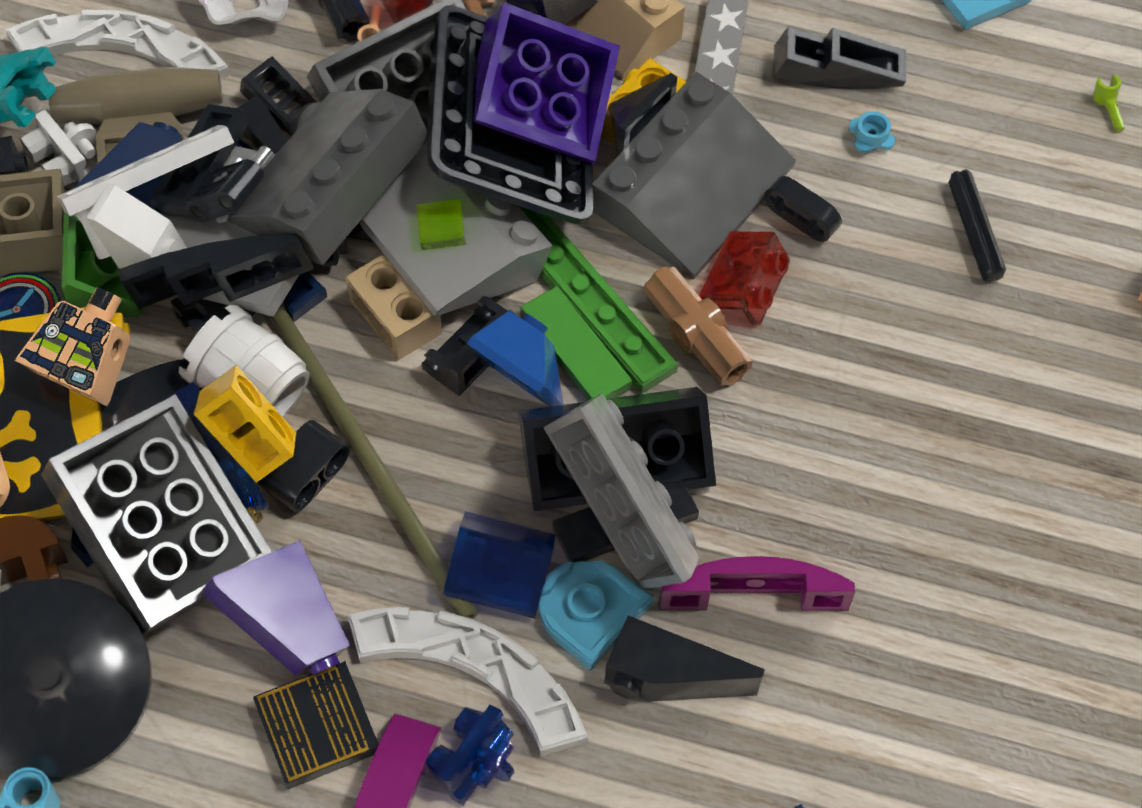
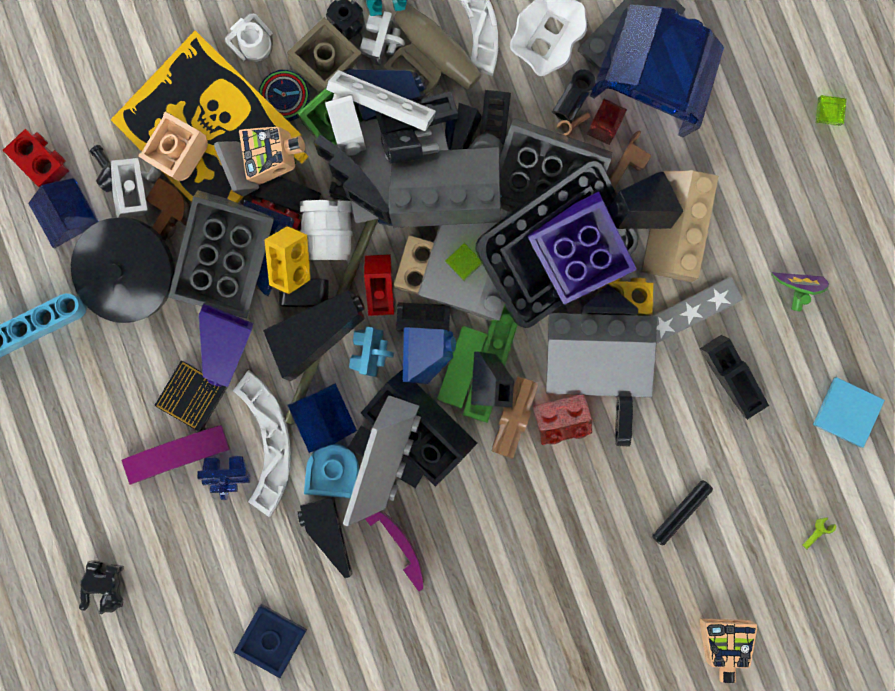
camera: 55 degrees right, 25 degrees up
(57, 414) = (233, 164): none -> light grey slope
(369, 486) = (310, 334): none -> black slope
(378, 364) = (379, 284): none -> red slope
(441, 427) = (373, 351): none -> medium azure hips
(632, 310) = (491, 382): none -> black slope
(873, 123) = (709, 423): medium azure plate -> none

